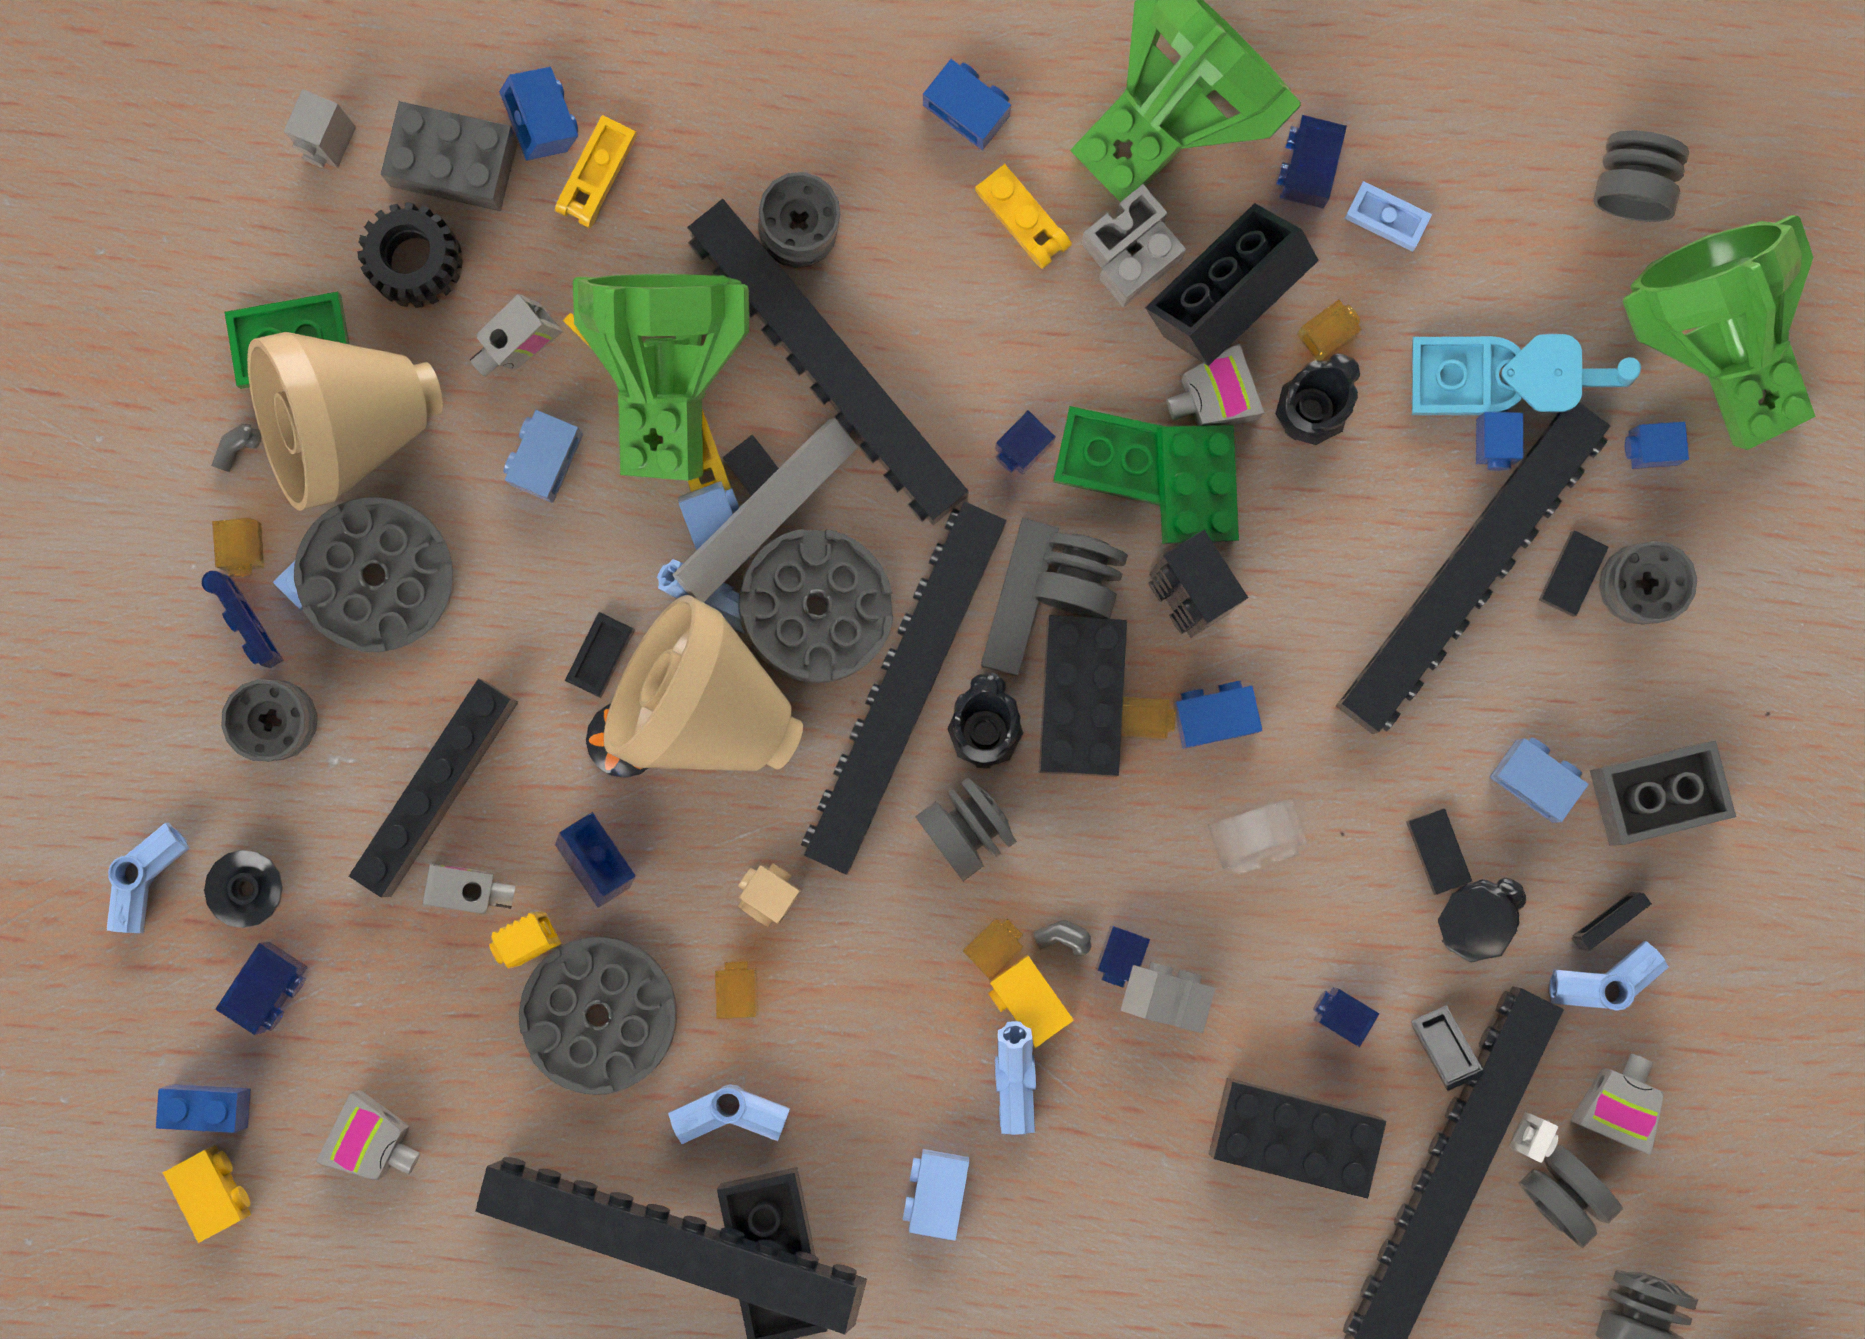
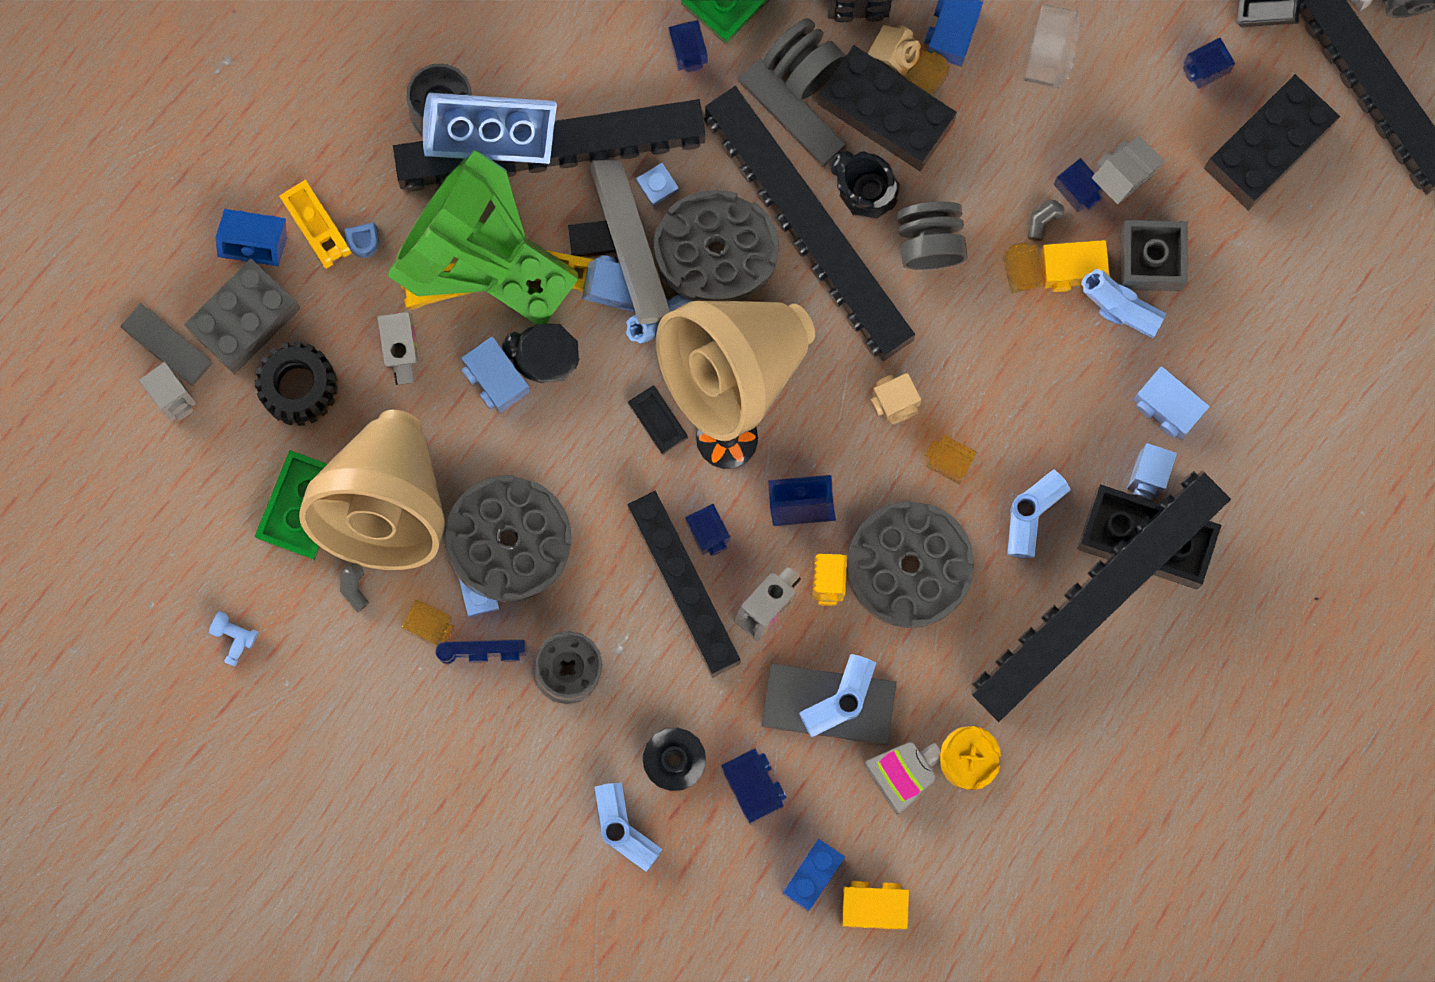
camera: 60 degrees left, 5 degrees down
(117, 363) = (241, 636): none -> light blue piece
(378, 96) = (166, 344): none -> dark grey tile
(399, 1016) = (798, 688): none -> dark grey tile
(424, 1201) = (970, 758): none -> yellow tile
(426, 1032) = (854, 684): none -> light blue piece
(507, 779) = (708, 530): none -> clear blue brick
(593, 491) = (543, 352): none -> black piece
(610, 230) = (363, 240): none -> medium blue tile
(788, 286) = (492, 125): none -> light blue brick
(843, 1219) = (1151, 472): none -> light blue brick
(854, 502) = (657, 184): none -> light blue plate
(1089, 1082) = (1154, 255): none -> dark grey brick
(1152, 667) = (896, 48): none -> tan brick

